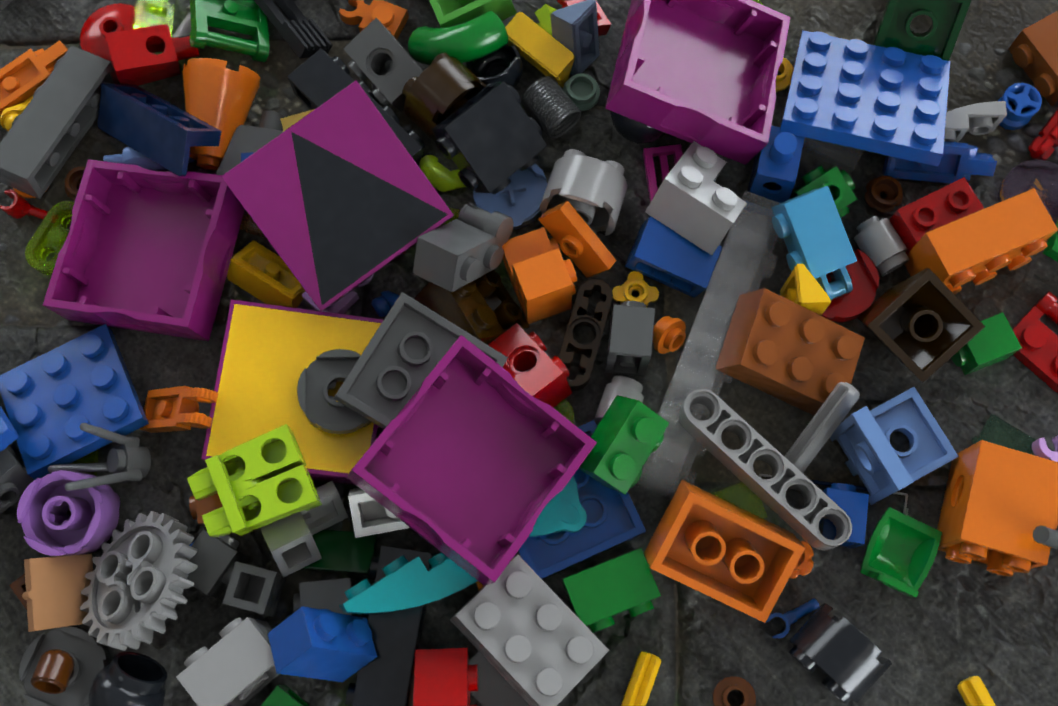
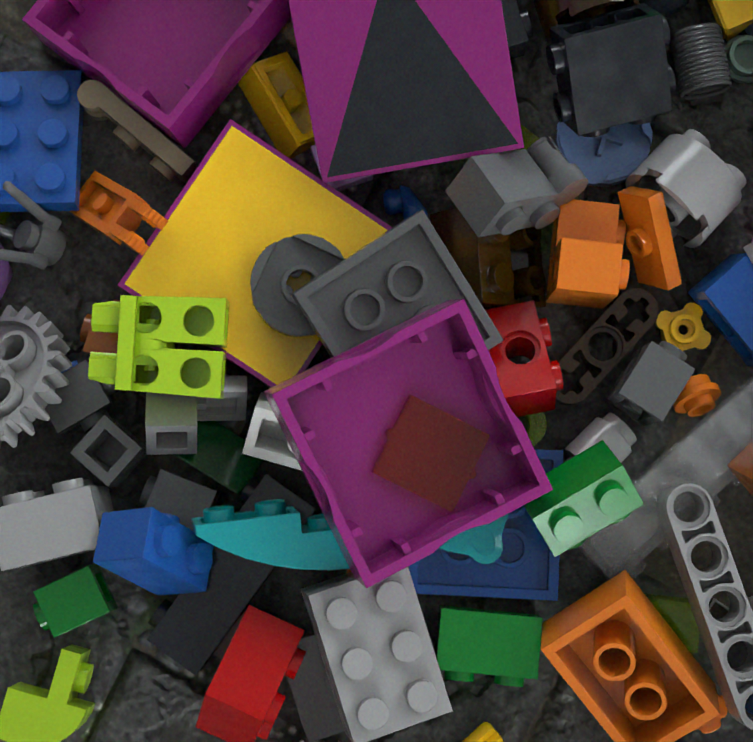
camera: 25 degrees right, 10 degrees up
(165, 346) = (135, 131): none -> dark tan plate
(439, 175) = (530, 78): lime arm -> none
(494, 463) = (430, 453): none -> clear red piece

